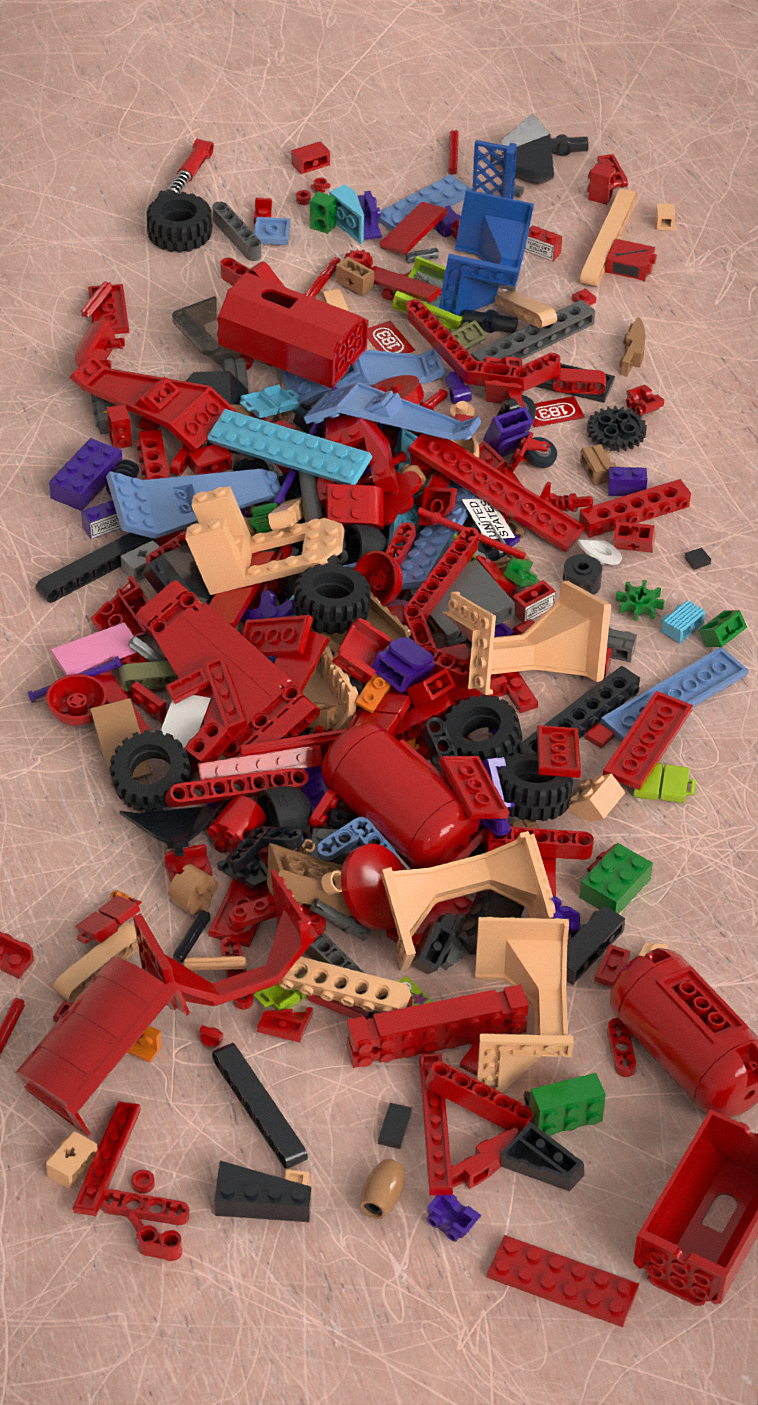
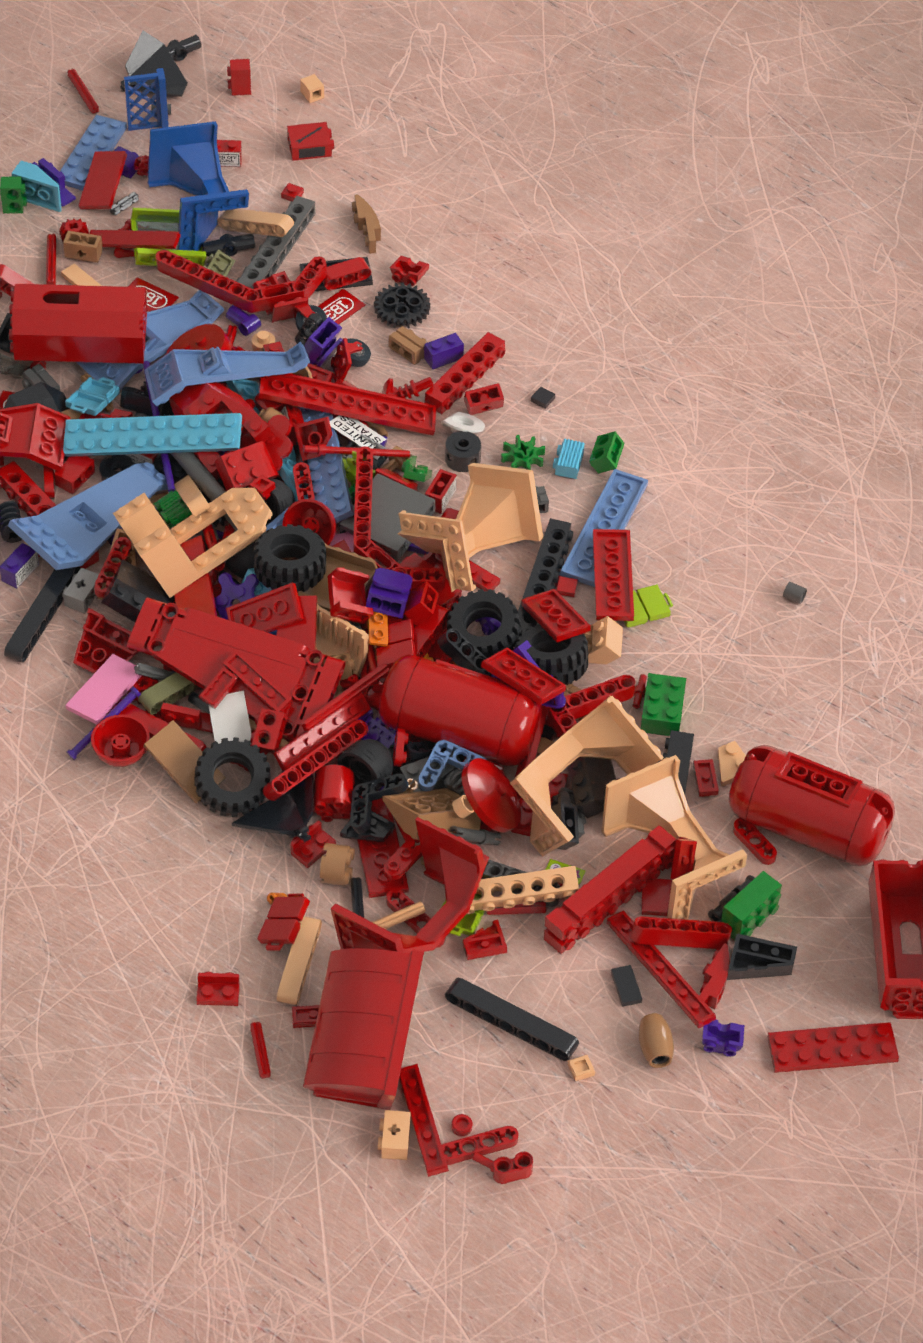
camera: 30 degrees left, 5 degrees up
(211, 1036) = (433, 981): red plate -> none
(260, 1195) = (564, 1091): black wedge -> none
(353, 527) = (263, 486): none -> red tile
(530, 1021) = (683, 857): none -> red panel
(611, 161) = (228, 52): red plate -> none
(611, 229) = (276, 126): light nougat beam -> none

